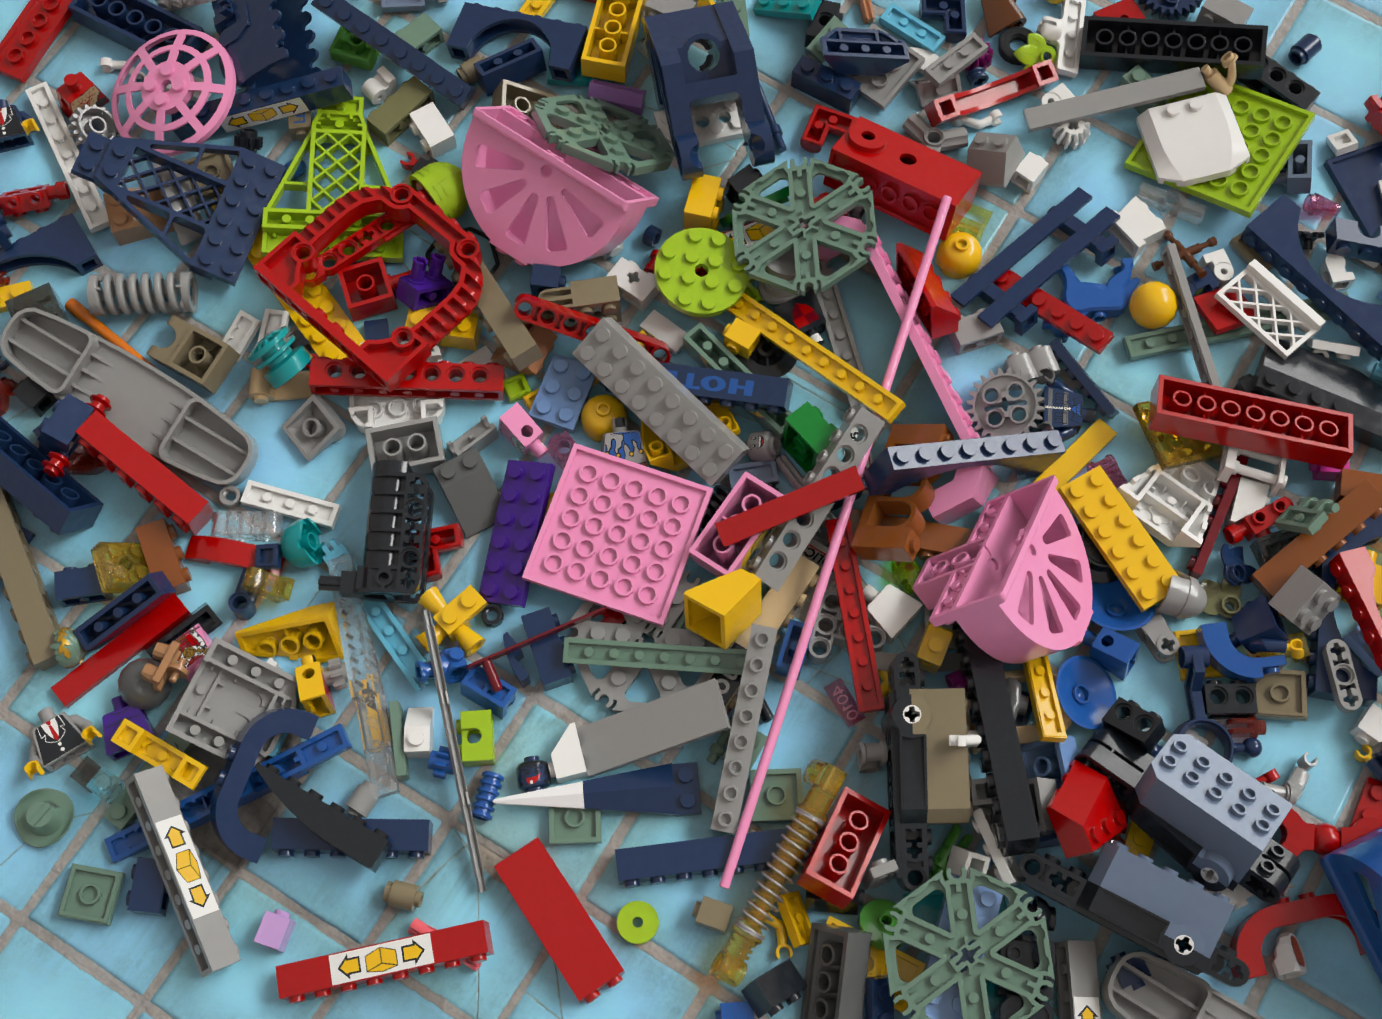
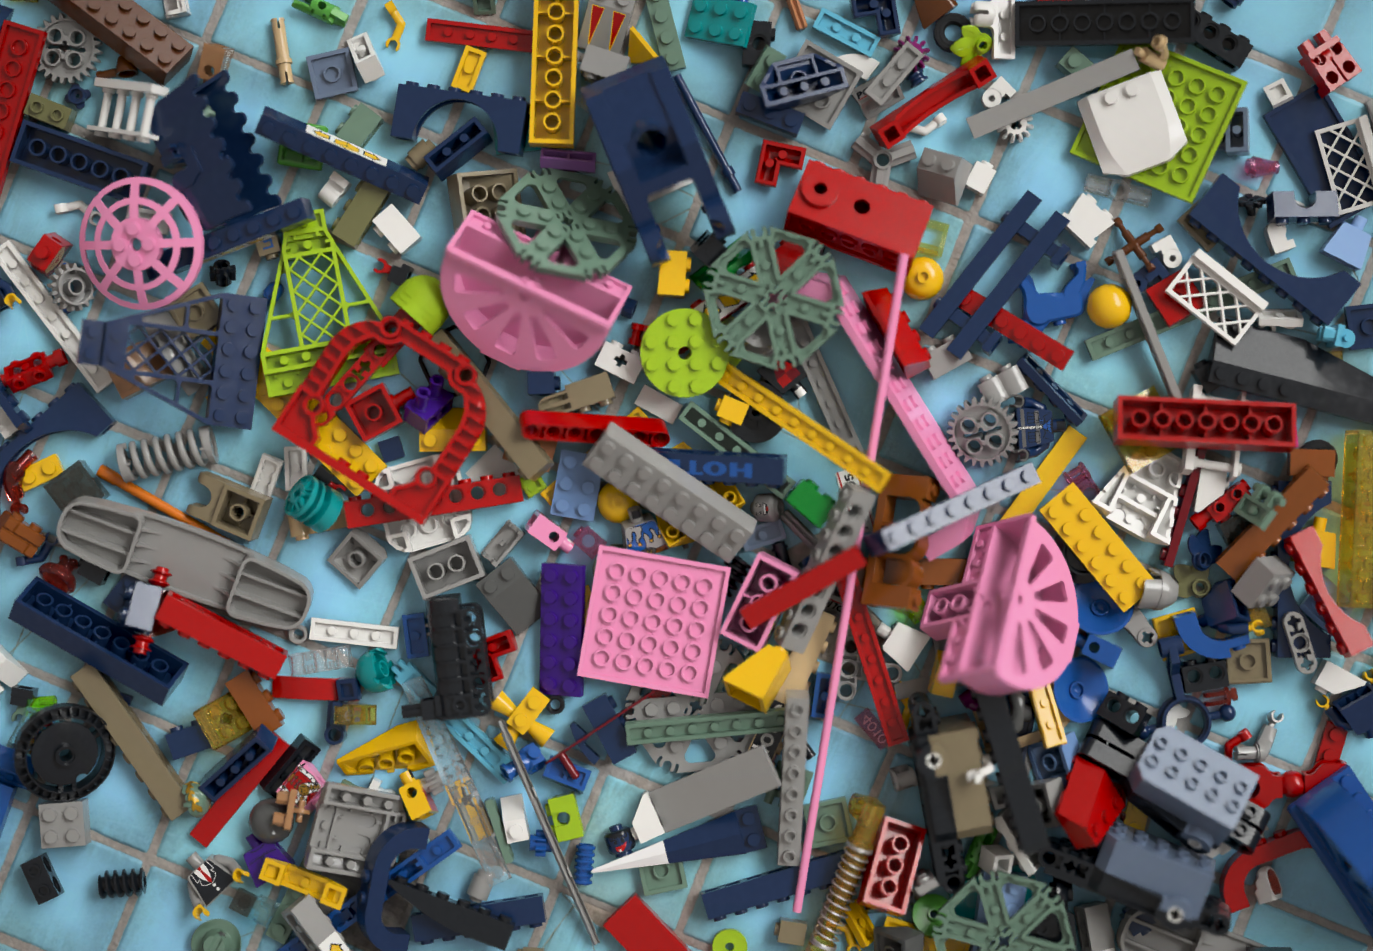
camera: 10 degrees left, 20 degrees up
(355, 517) = (415, 635): none -> blue plate

